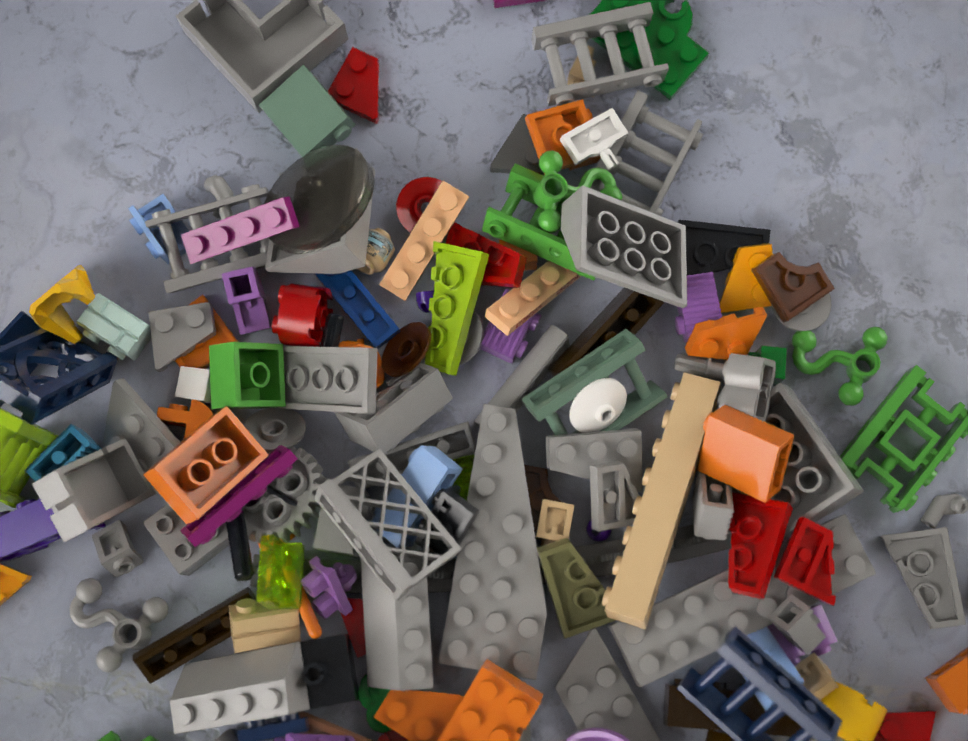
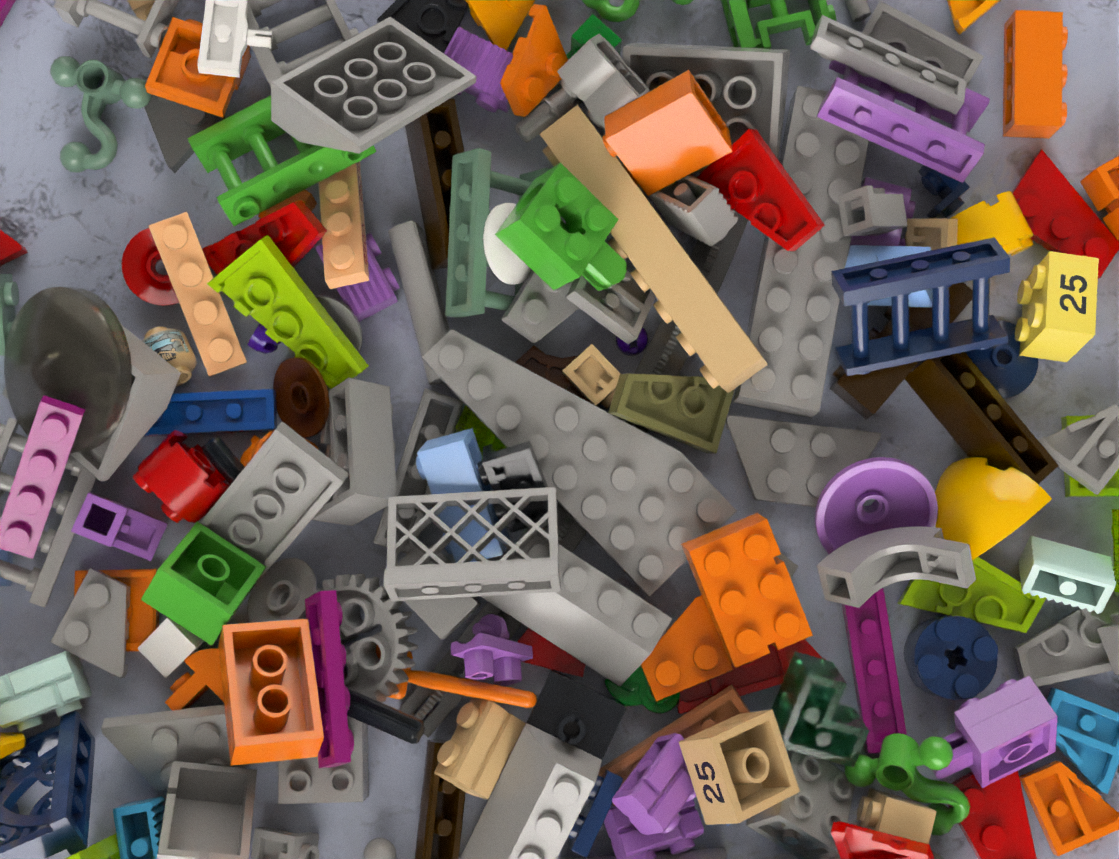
camera: 60 degrees left, 5 degrees up
(280, 574) = (443, 692): clear neon green bracket -> none
(507, 77) = (68, 73): none -> sand green piece
(551, 163) = (219, 100): bright green piece -> none
(615, 434) = (560, 249): none -> bright green brick
(809, 561) = (818, 153): red wing -> none
(860, 656) = (947, 189): none -> dark blue bracket
(867, 601) = (901, 129): none -> medium lavender fence
(905, 564) = (888, 65): none -> light grey plate

